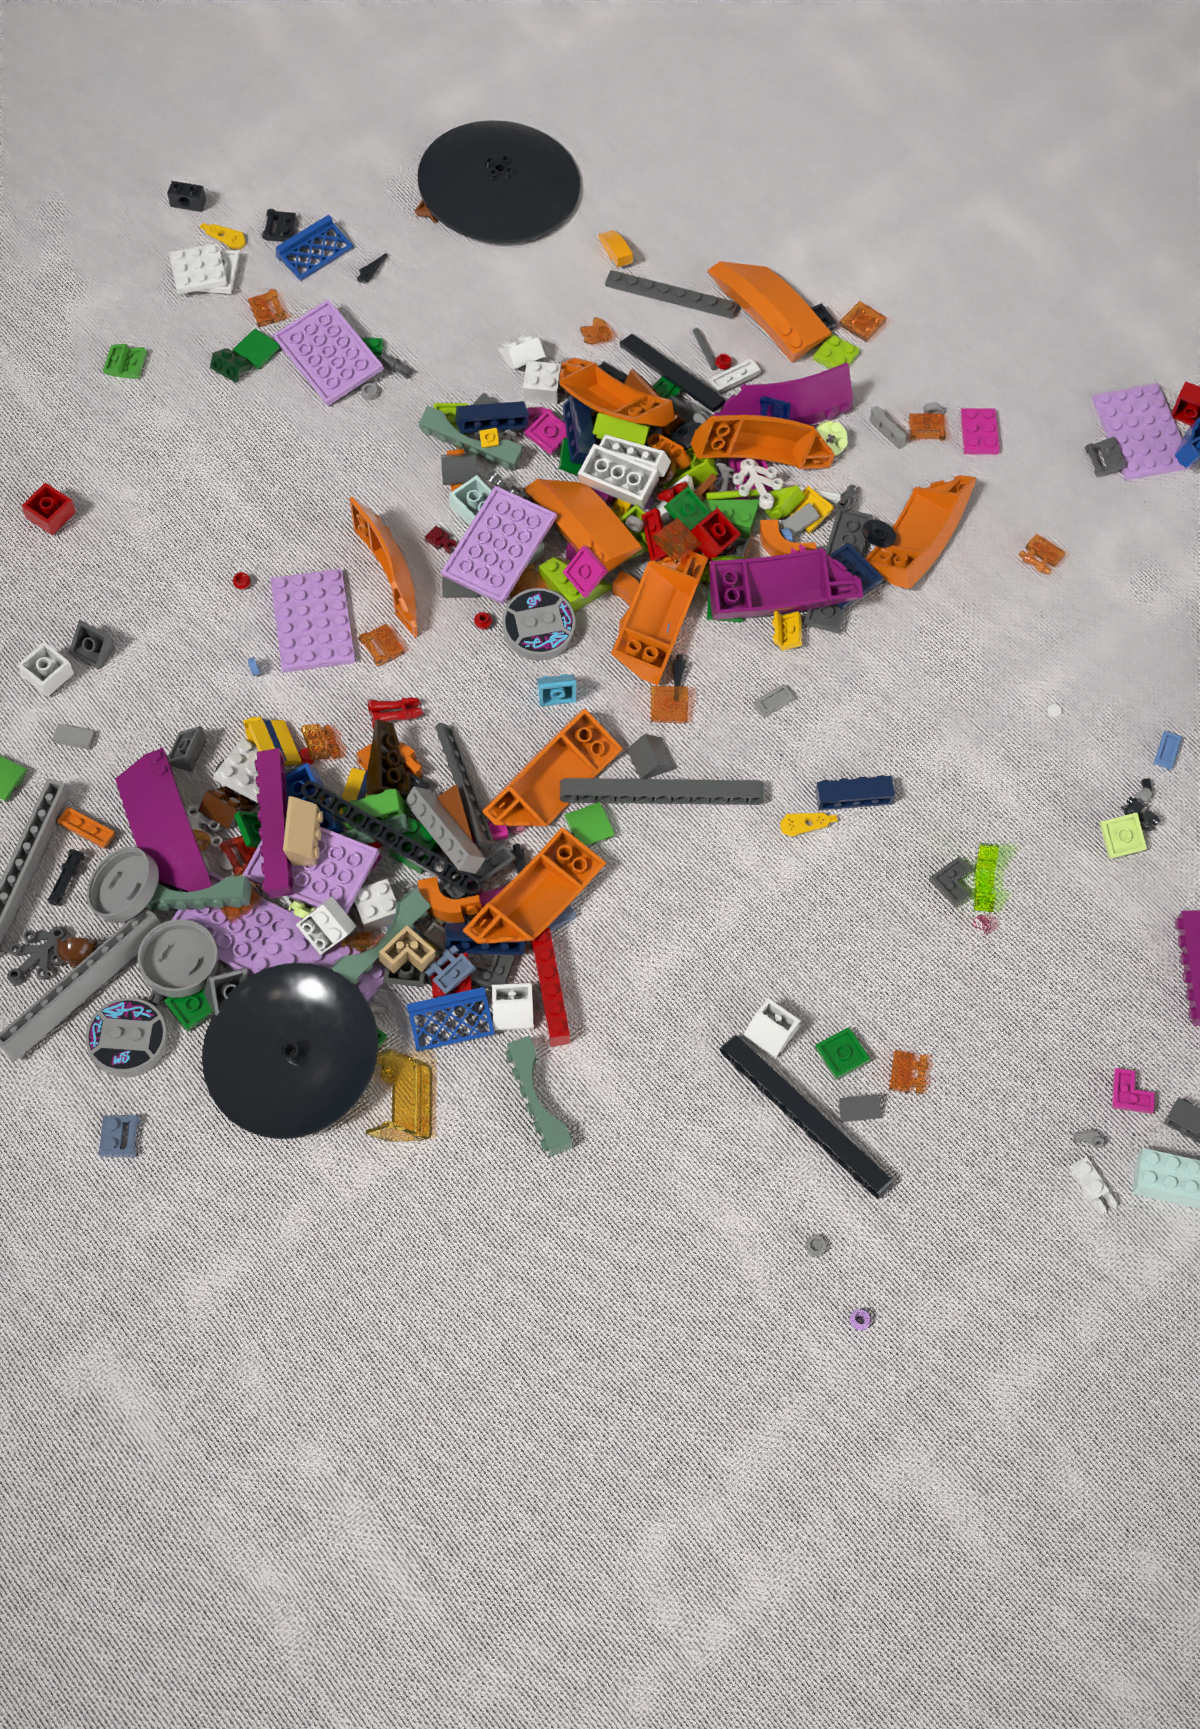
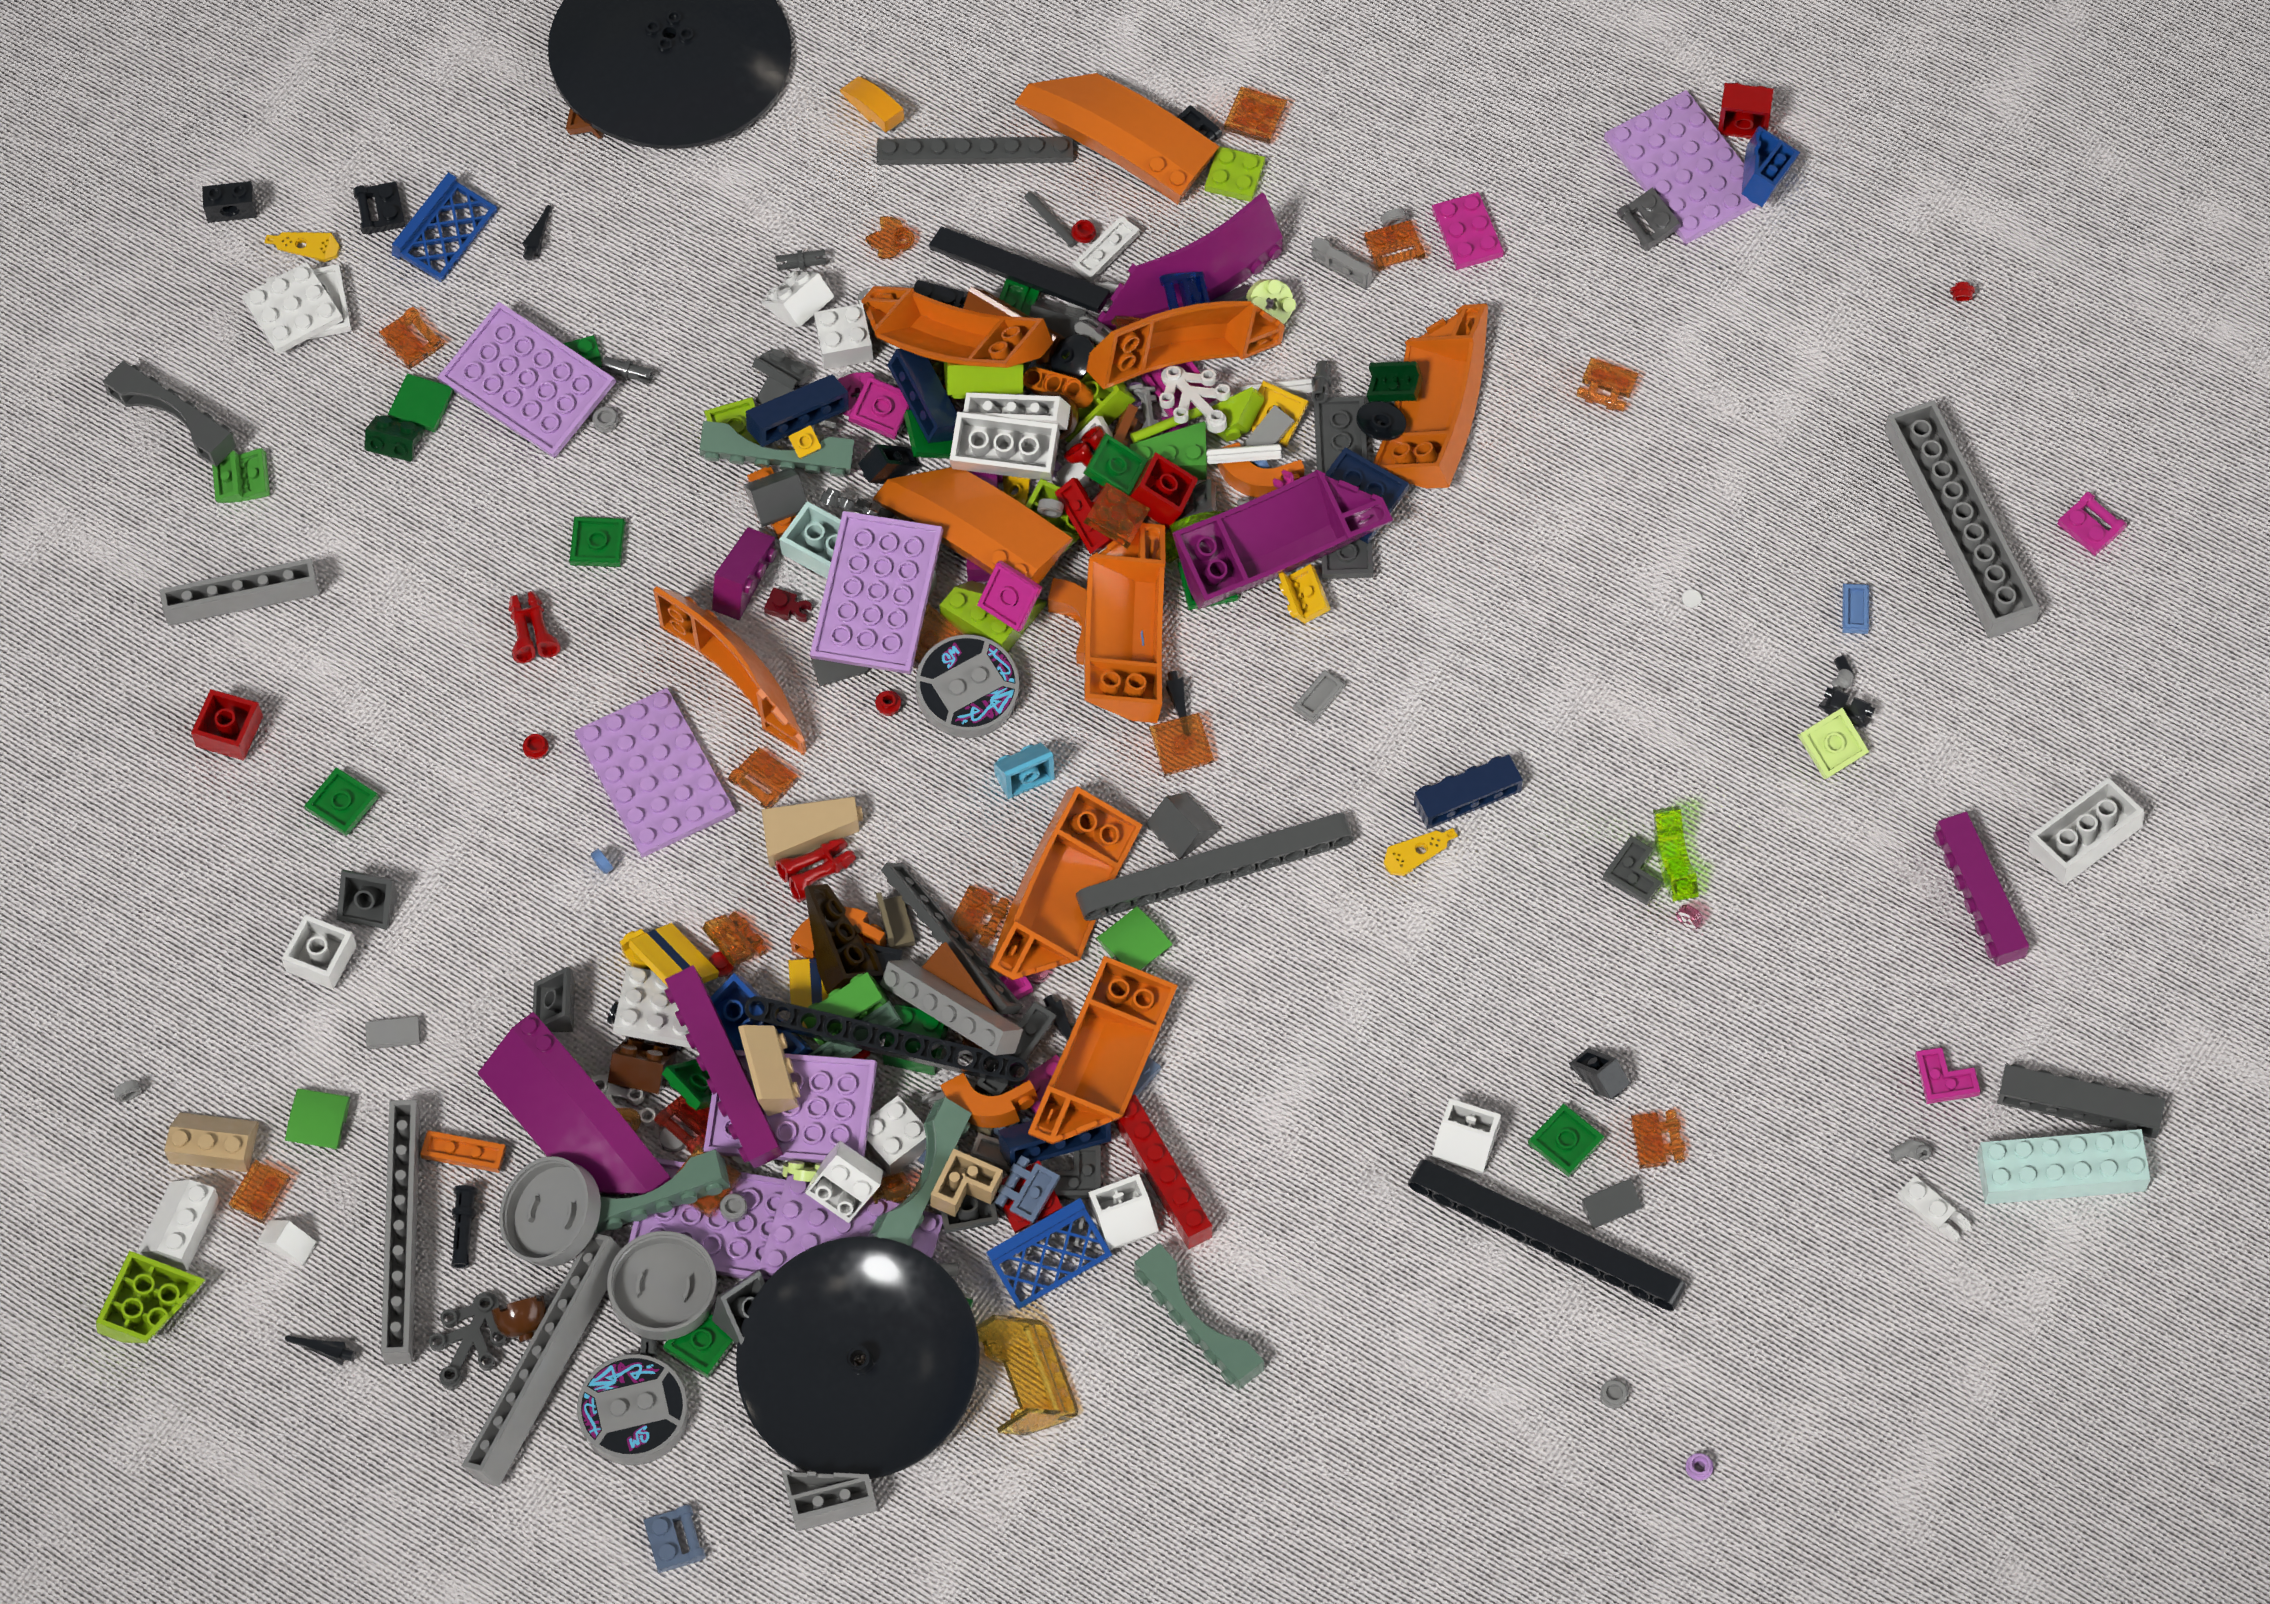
camera: 15 degrees left, 0 degrees up
(80, 290) = (133, 388): none -> dark grey arch
(91, 429) = (239, 592): none -> light grey brick
(102, 579) = (341, 801): none -> green plate
(231, 1141) = (827, 1497): none -> light grey wedge
(248, 920) = (733, 1207): none -> light grey tile
(273, 517) = (524, 649): none -> red piece
(334, 465) = (597, 541): none -> green tile
(393, 683) = (804, 827): none -> tan slope
(418, 509) = (742, 572): none -> magenta wedge
(432, 763) = (895, 922): none -> dark tan panel
(487, 772) = (972, 910): none -> clear orange plate
(493, 390) = (783, 369): none -> dark grey plate
(533, 329) = (800, 259): none -> dark grey pin
(540, 467) = (888, 462): none -> black slope
(778, 527) = (1244, 453): none -> white axle
(882, 1013) = (1601, 1073): none -> black slope
(897, 510) = (1394, 381): none -> dark green bracket

